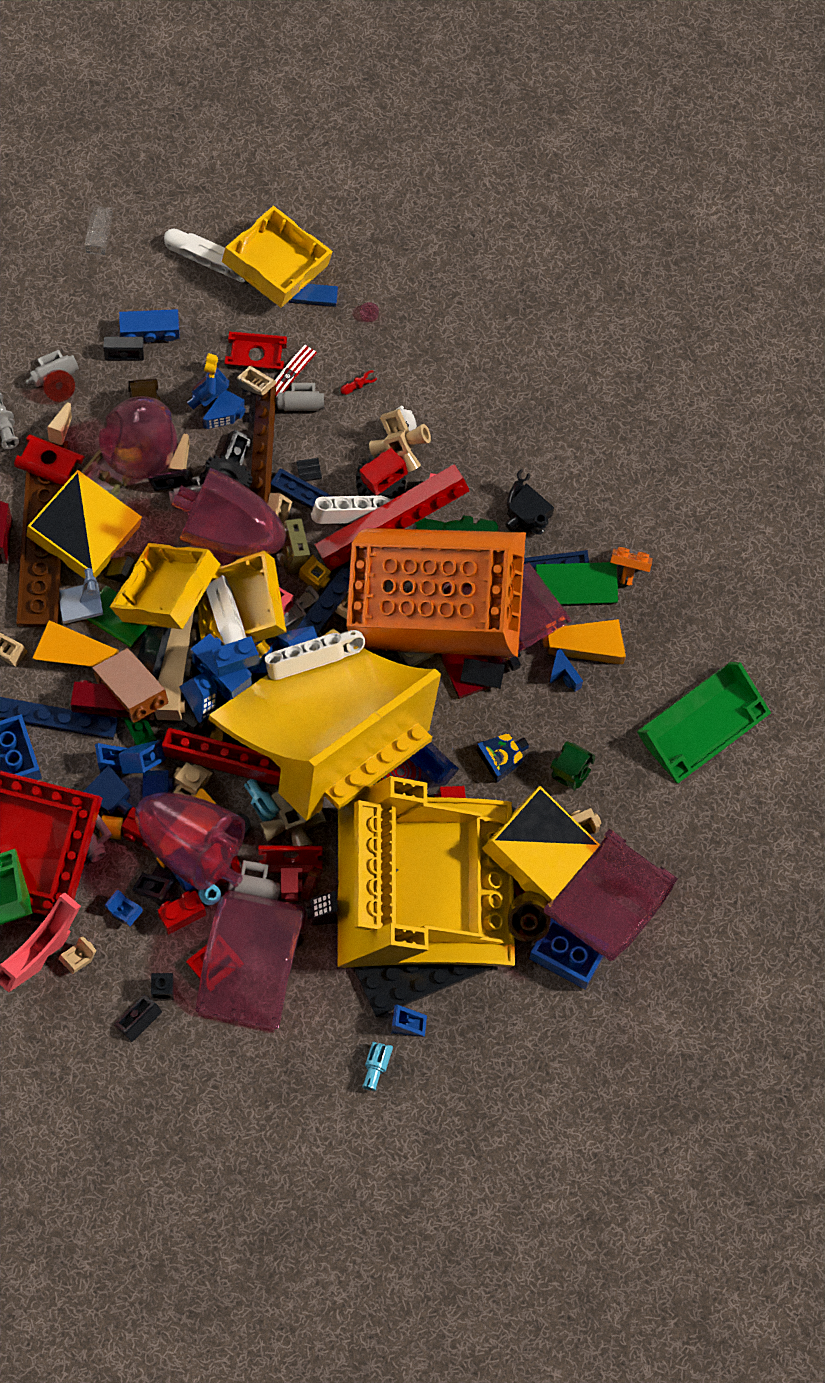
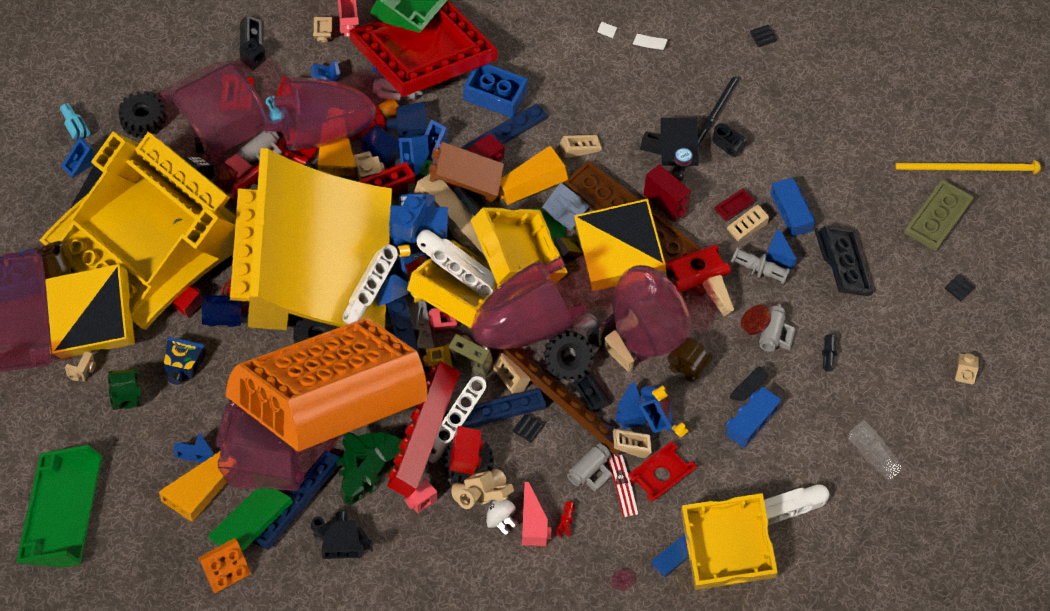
camera: 135 degrees right, 10 degrees down
(37, 320) = (829, 352): none -> black axle
(313, 1032) = (148, 123): none -> black tyre
(385, 397) = (534, 520): none -> coral slope

